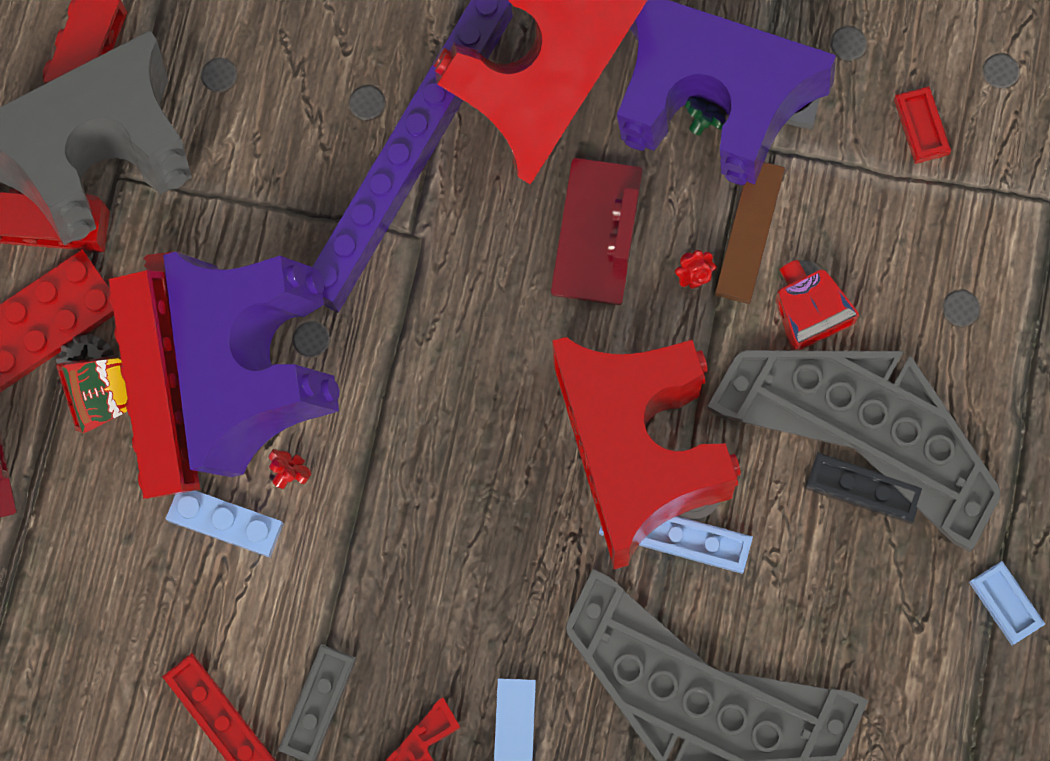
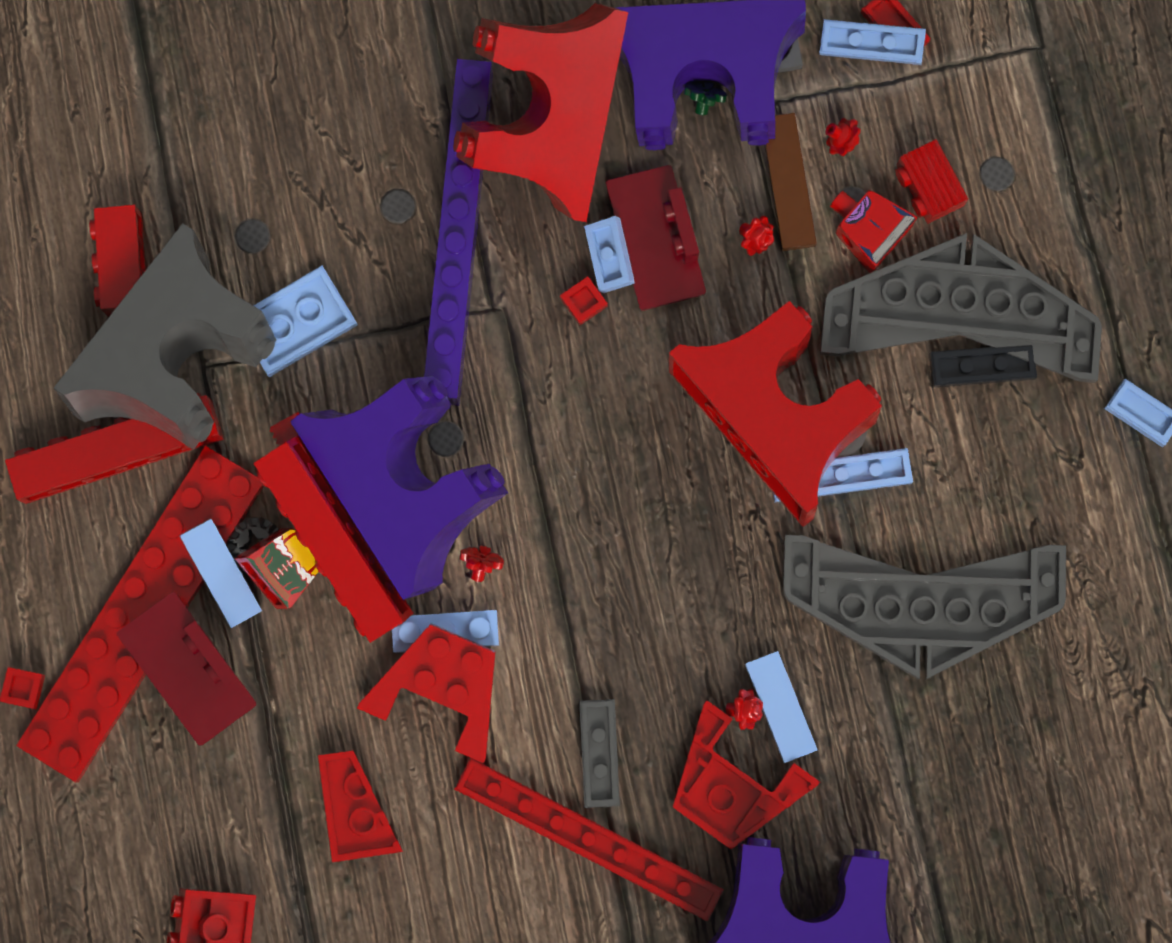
camera: 30 degrees left, 5 degrees up
(38, 373) = (220, 573): none -> light blue tile
(56, 654) = (352, 812): none -> red wing
(206, 560) = (447, 672): none -> red wing
(227, 170) = (304, 318): none -> light blue tile
(477, 723) = (745, 709): none -> red plant
(500, 262) = (583, 300): none -> red plate
(544, 228) = (609, 254): none -> light blue plate
(822, 208) = (842, 136): none -> red plant
(890, 287) = (930, 181): none -> red brick
(891, 130) = (872, 42): none -> light blue tile

